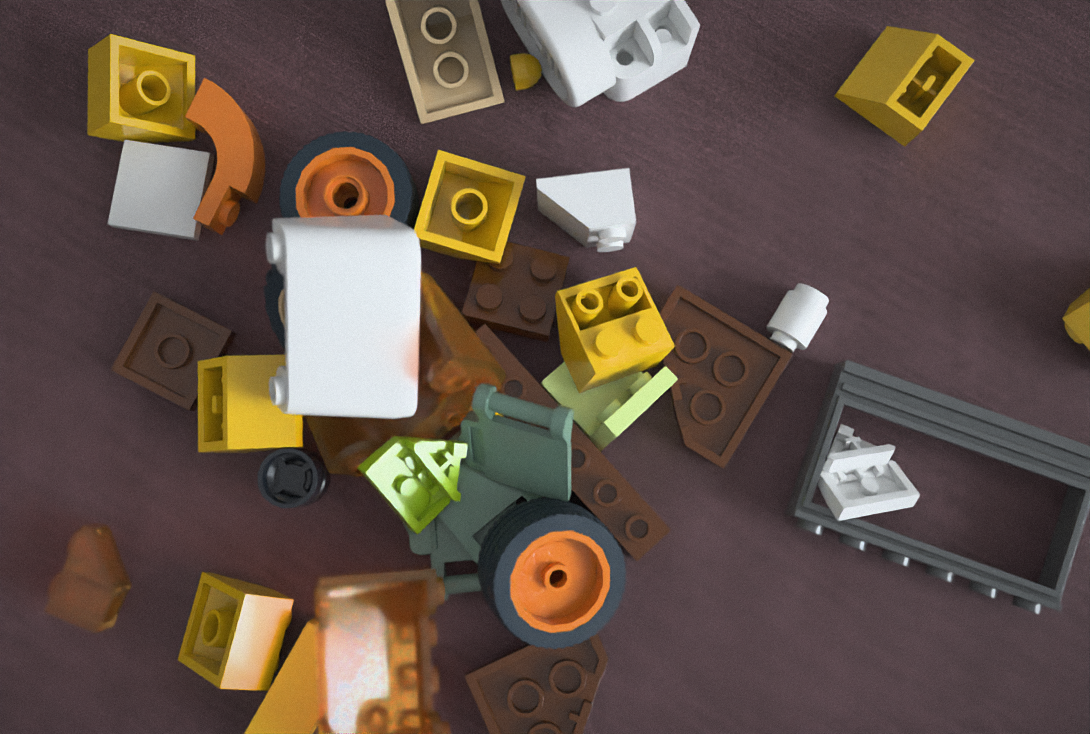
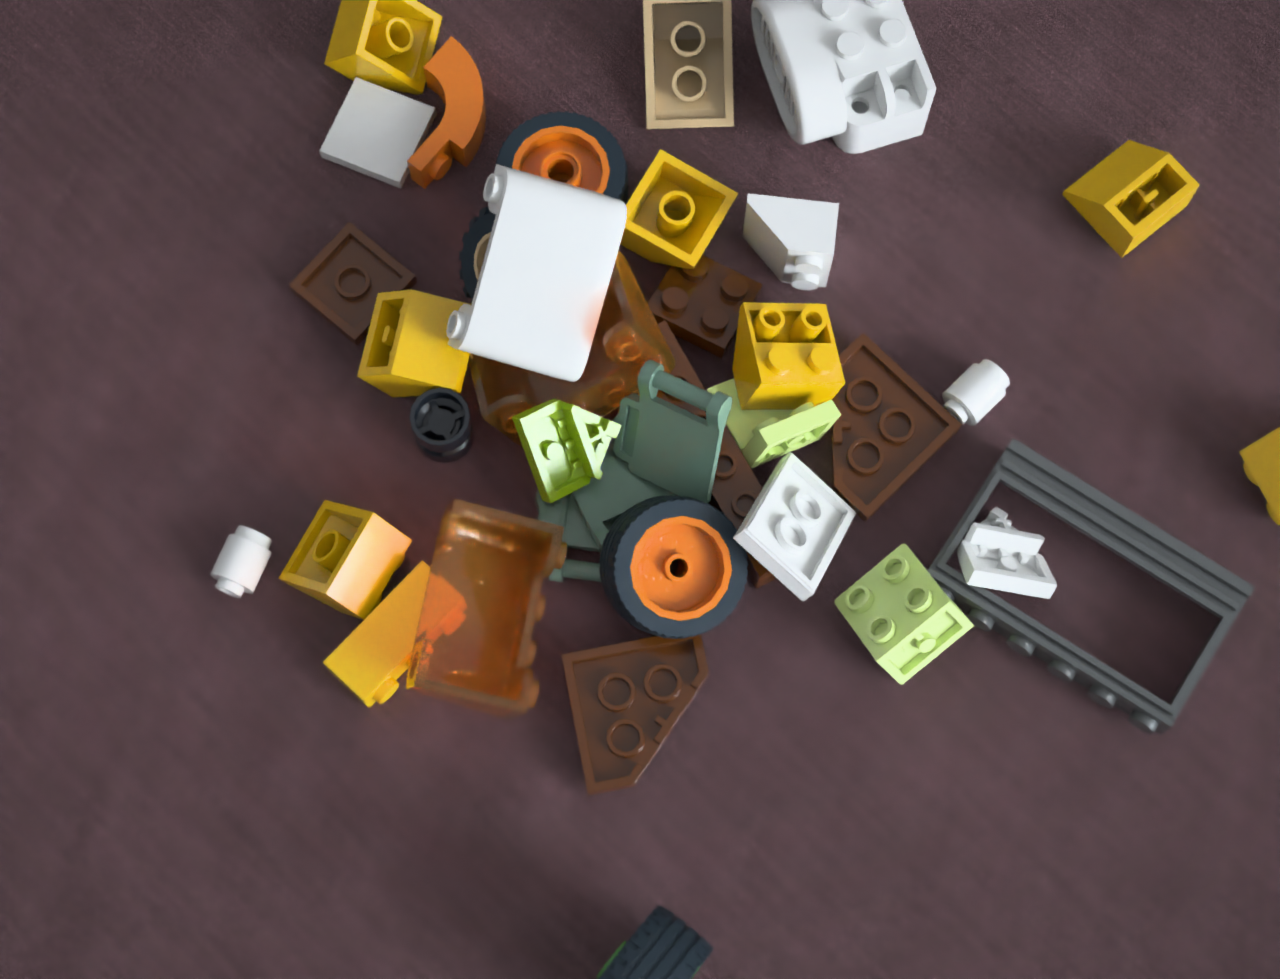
camera: 10 degrees right, 10 degrees down
(92, 581) = (217, 479): clear orange slope -> none
(136, 658) = (241, 561): none -> white brick
(525, 70) = (761, 101): yellow hinge -> none
(659, 505) = (795, 526): none -> white tile
(776, 557) = (902, 614): none -> yellowish green bracket

